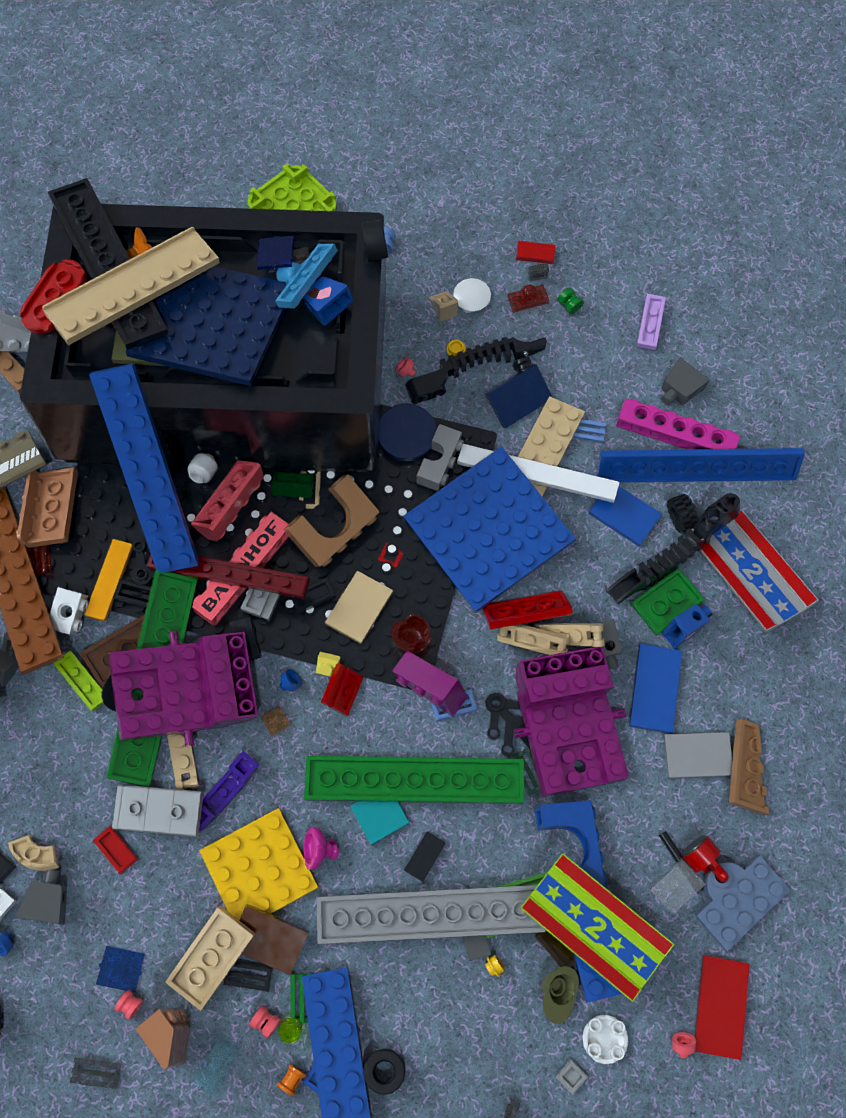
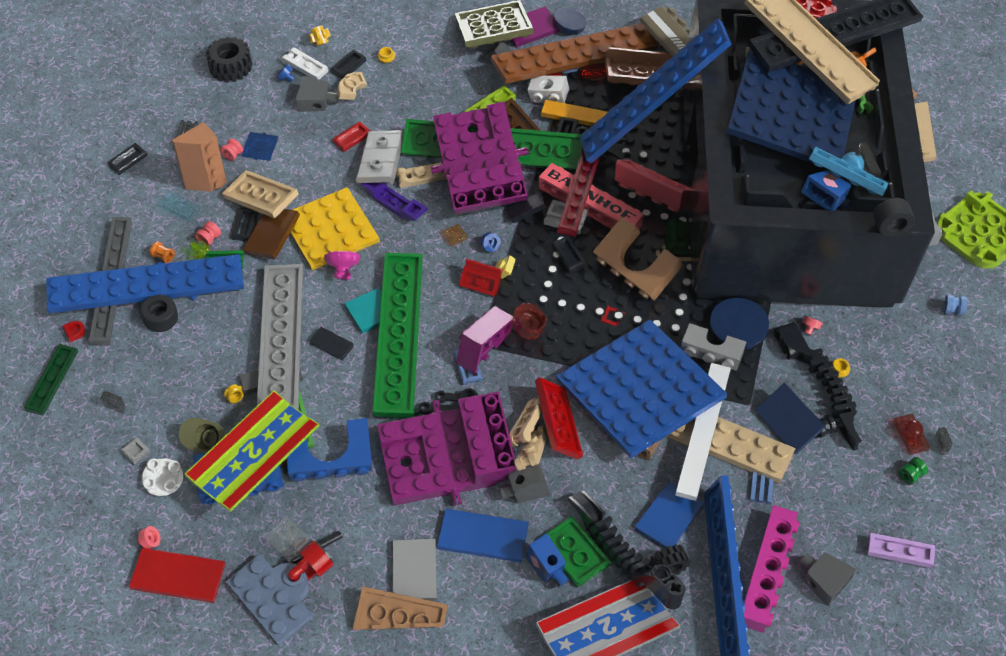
camera: 90 degrees right, 15 degrees down
(202, 468) = (684, 168): white head -> none
(275, 252) = (868, 147): clear blue piece -> none
(359, 607) = (558, 288): tan tile -> none
(444, 305) = (887, 356): tan slope -> none
(472, 295) = (906, 383): white dish -> none
(535, 252) = (970, 442): red tile -> none

